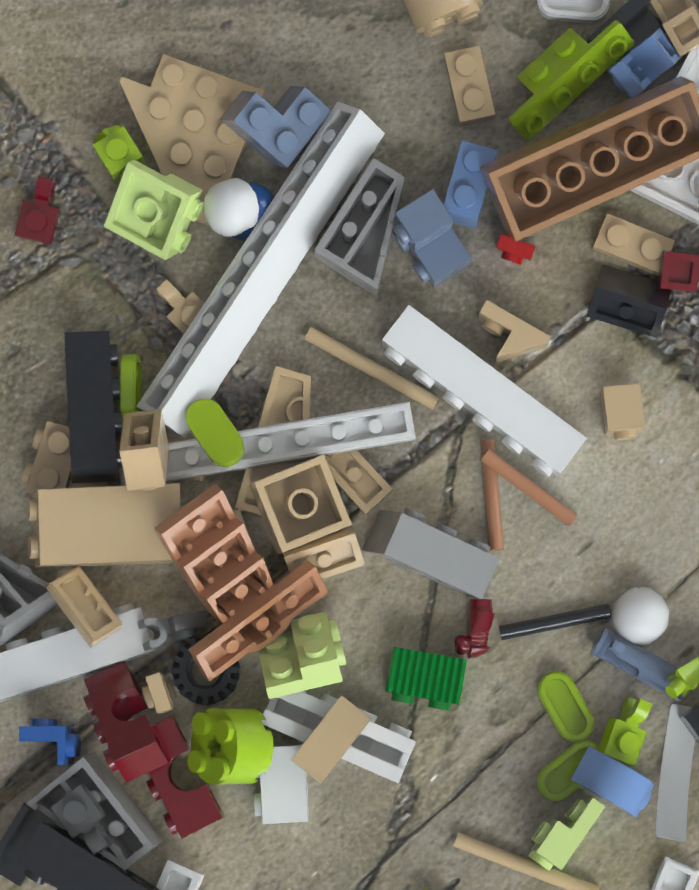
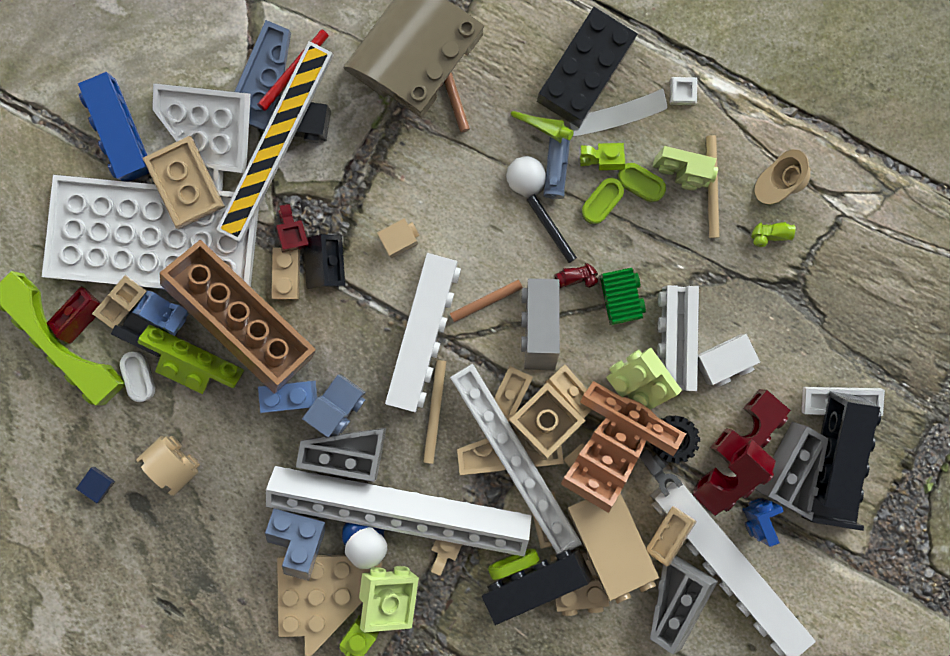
camera: 115 degrees left, 5 degrees up
(80, 814) = (806, 481): dark grey plate -> none
(144, 450) = (556, 540): tan brick -> none
(158, 693) = (705, 463): tan plate -> none
(215, 432) = (522, 497): lime tile -> none
(230, 746) = (720, 403): lime brick -> none
(331, 739) = (690, 339): tan slope -> none
(469, 85) = (220, 423): tan plate -> none
(513, 250) = (321, 347): red plate -> none
(521, 336) = (375, 321): tan slope -> none
(528, 487) = (472, 279): nougat bar -> none
(613, 781) = (642, 150): medium blue brick -> none

